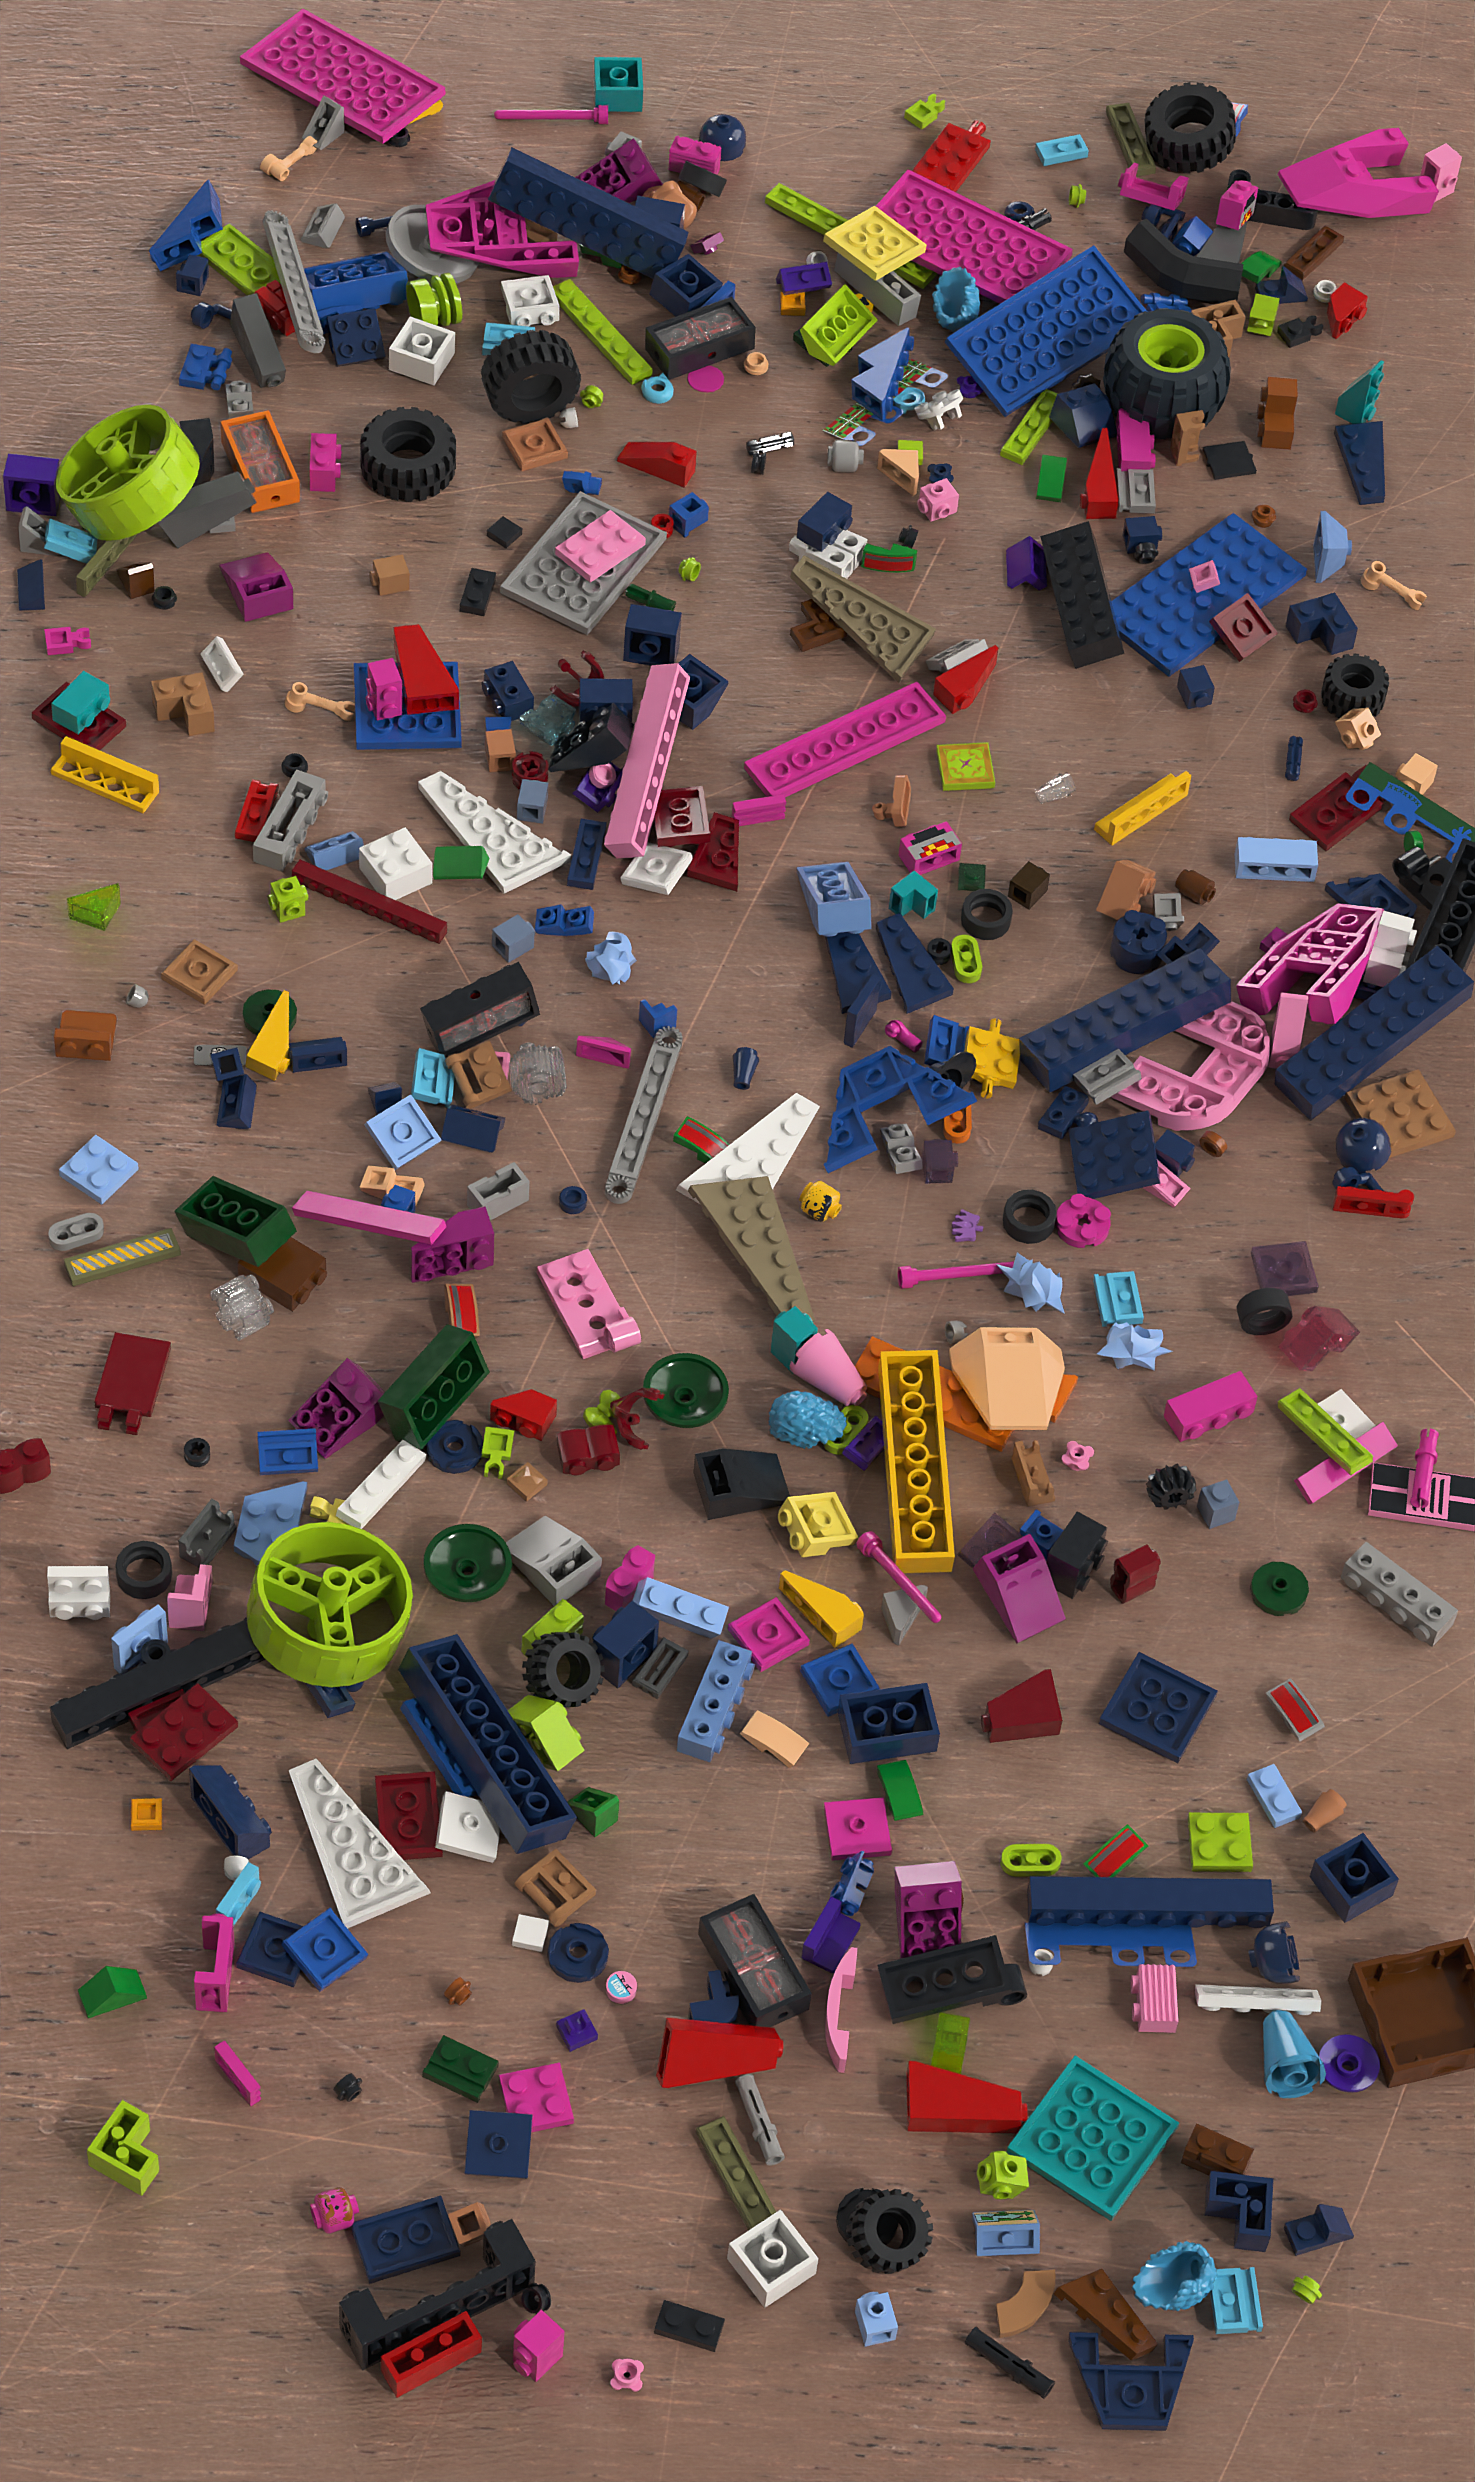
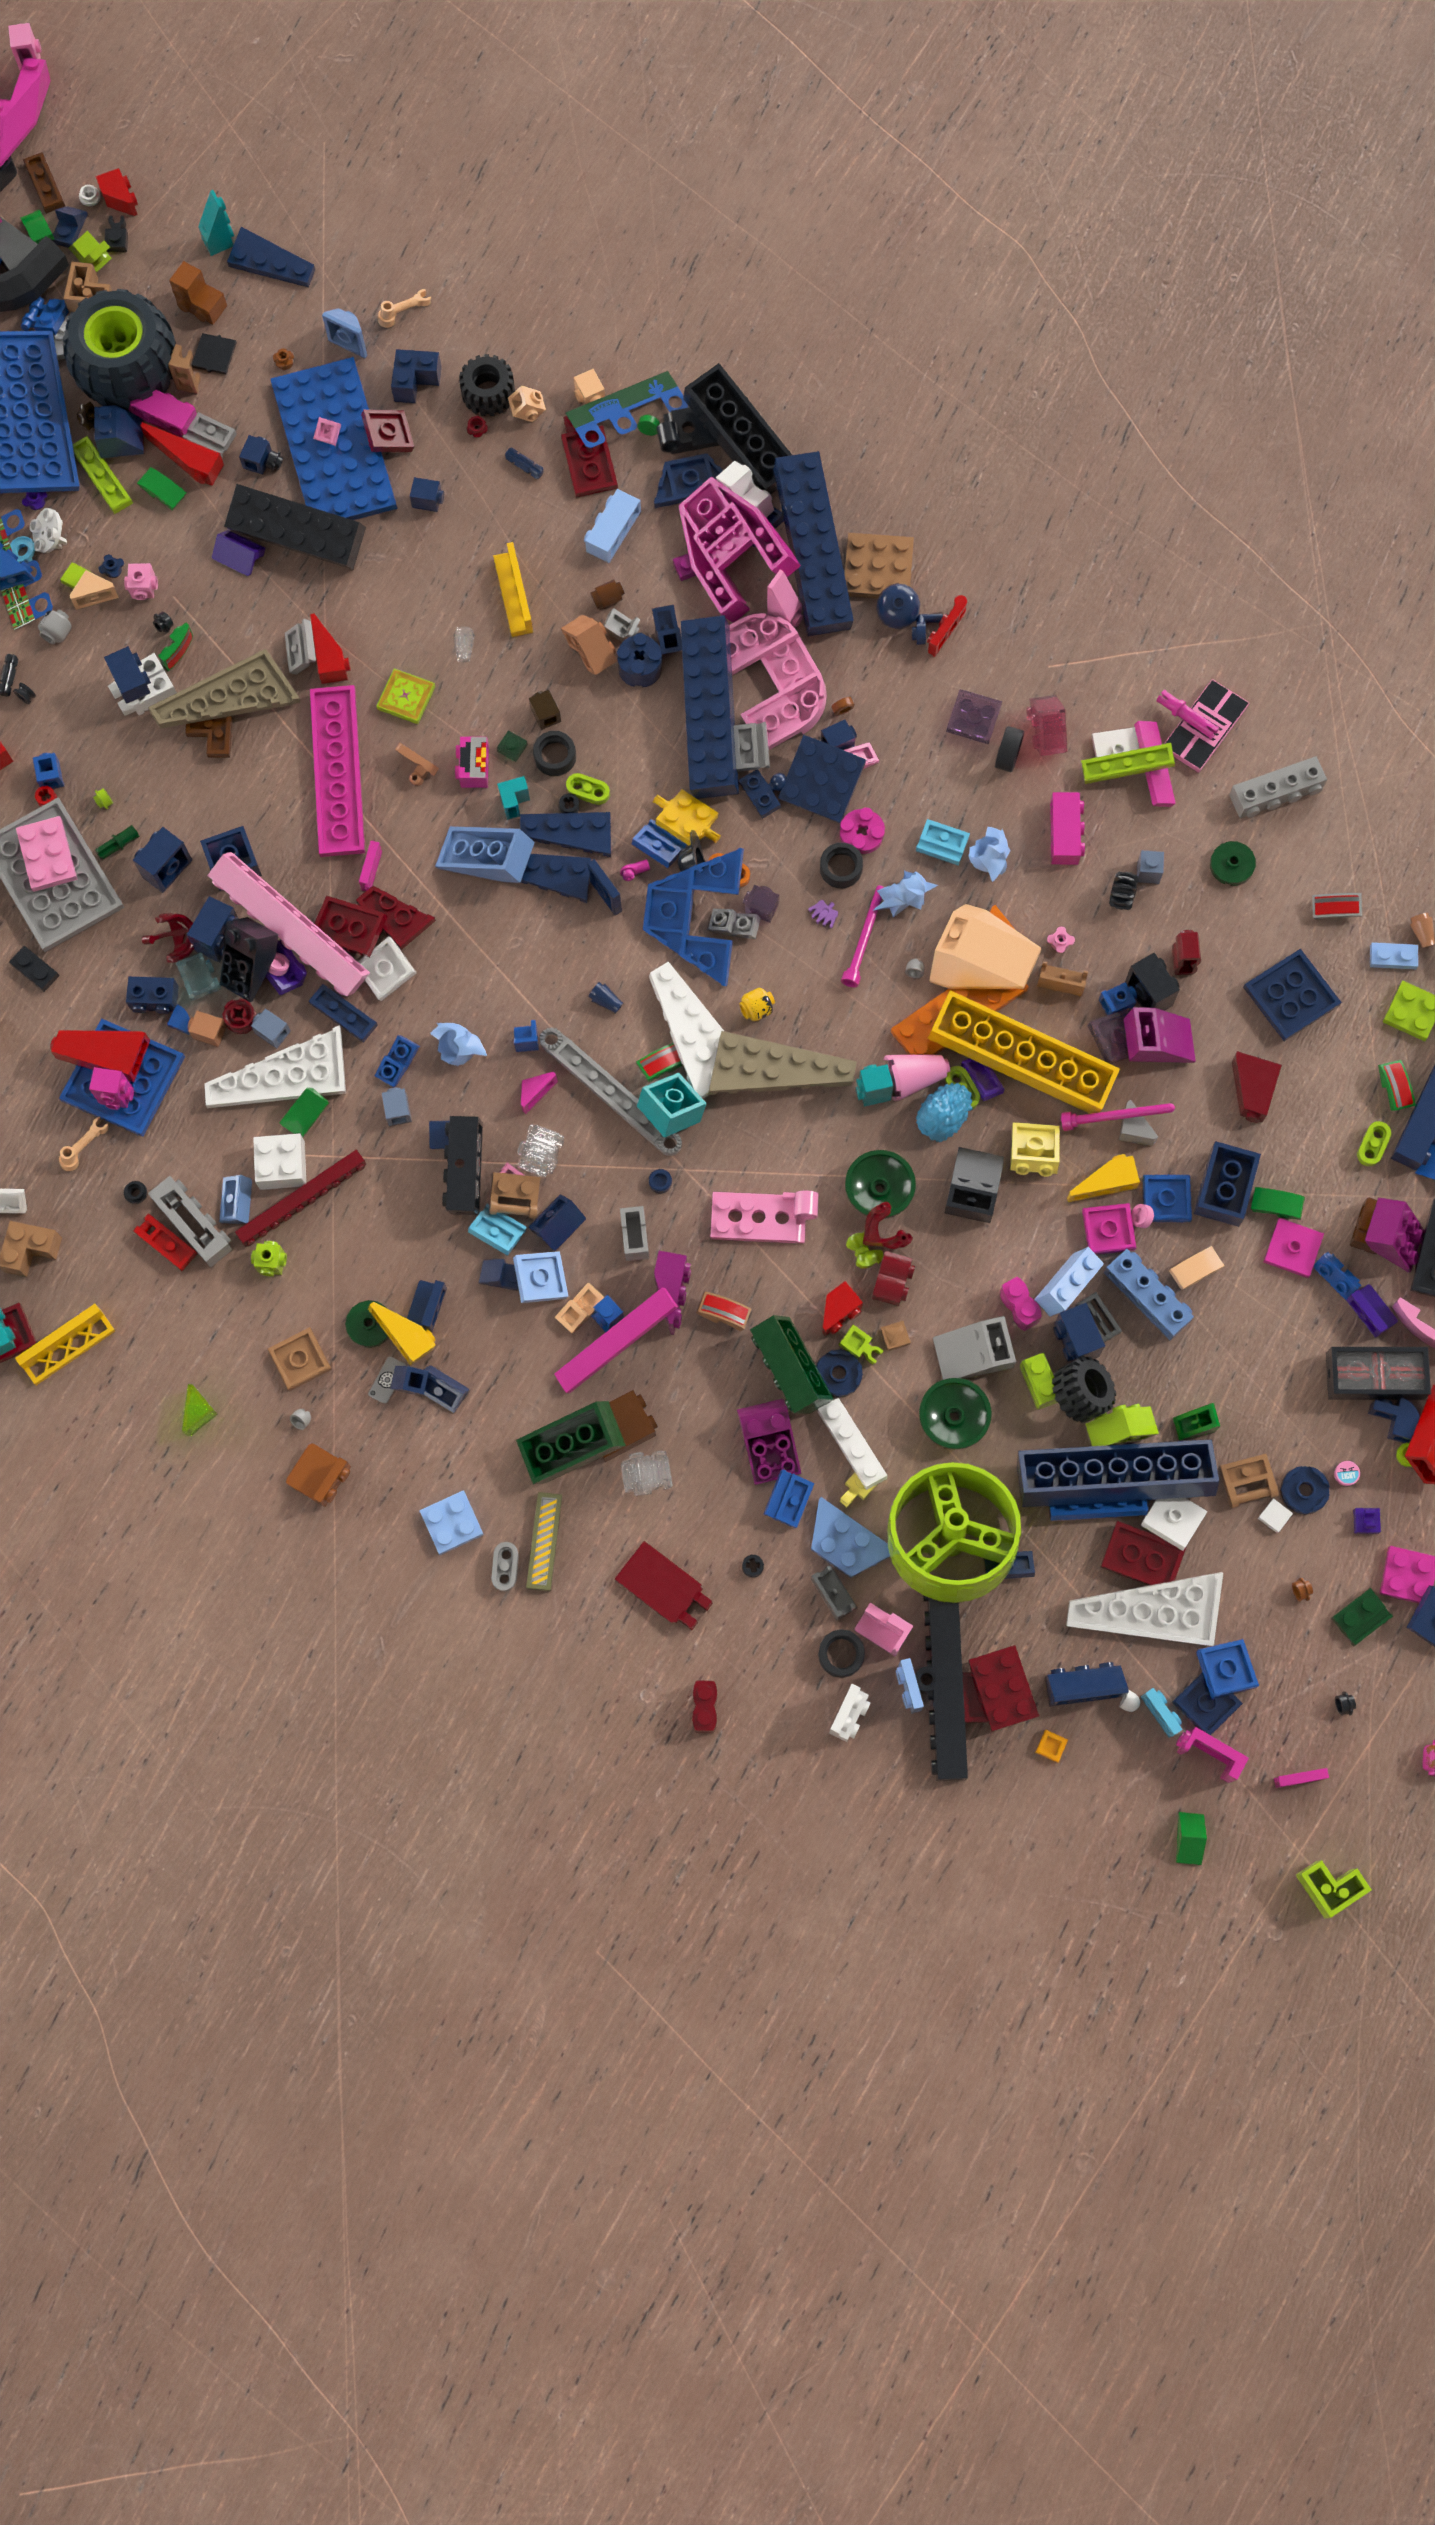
camera: 55 degrees left, 20 degrees up
(657, 1163) = (671, 1104): none -> teal brick
(802, 1658) = (1142, 1216): none -> bright pink tile

